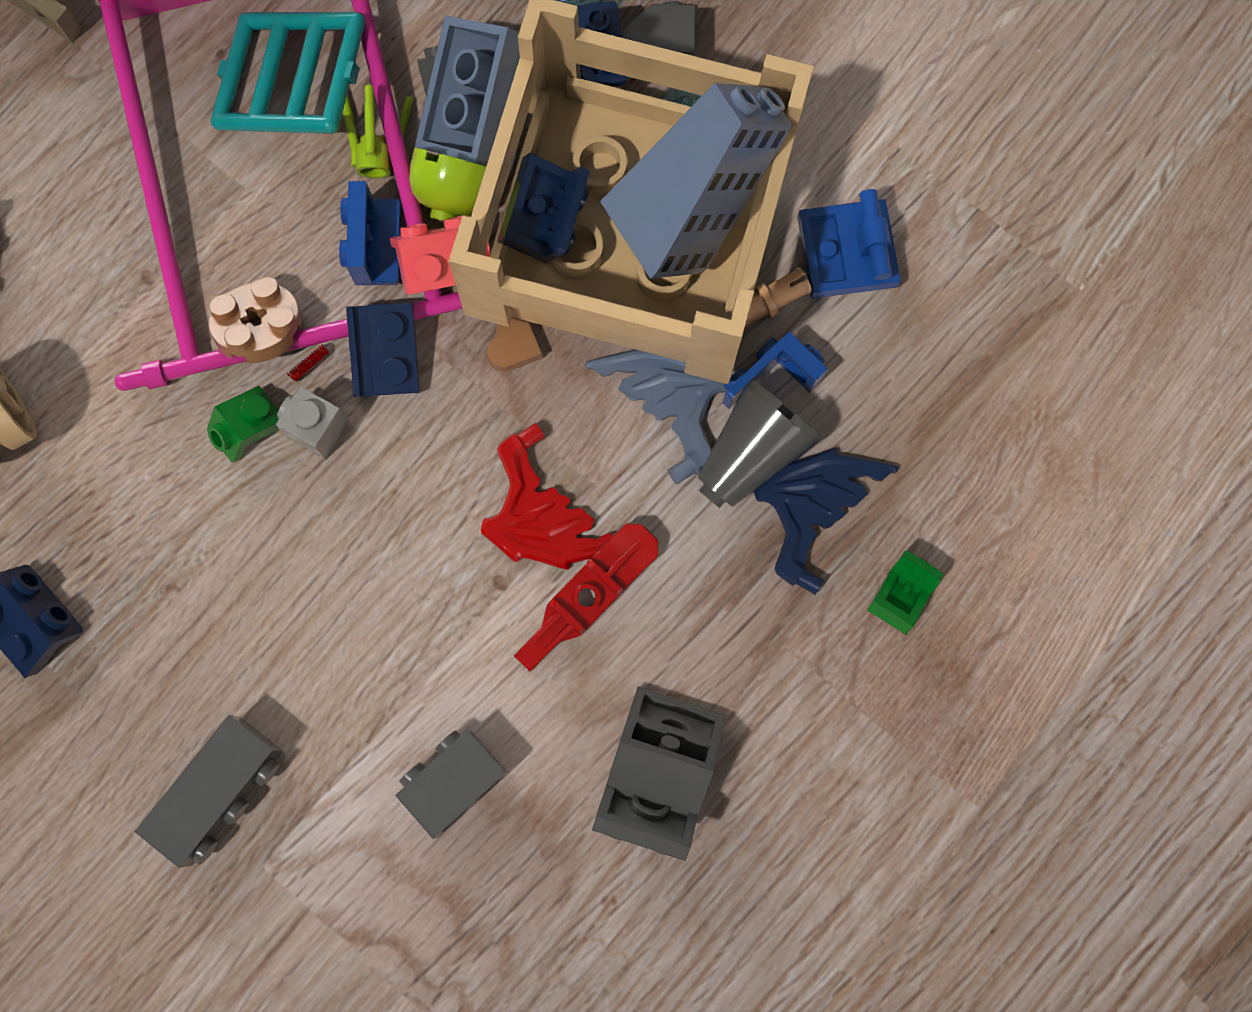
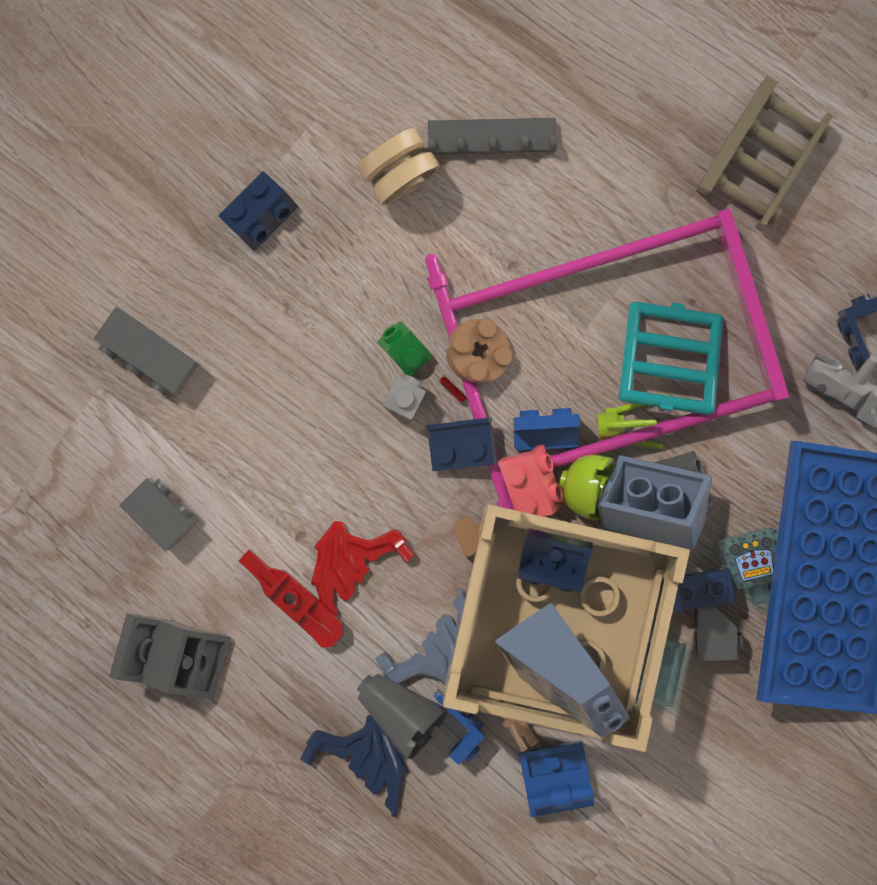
camera: 90 degrees right, 10 degrees up
(905, 591) = (302, 821): green bracket -> none

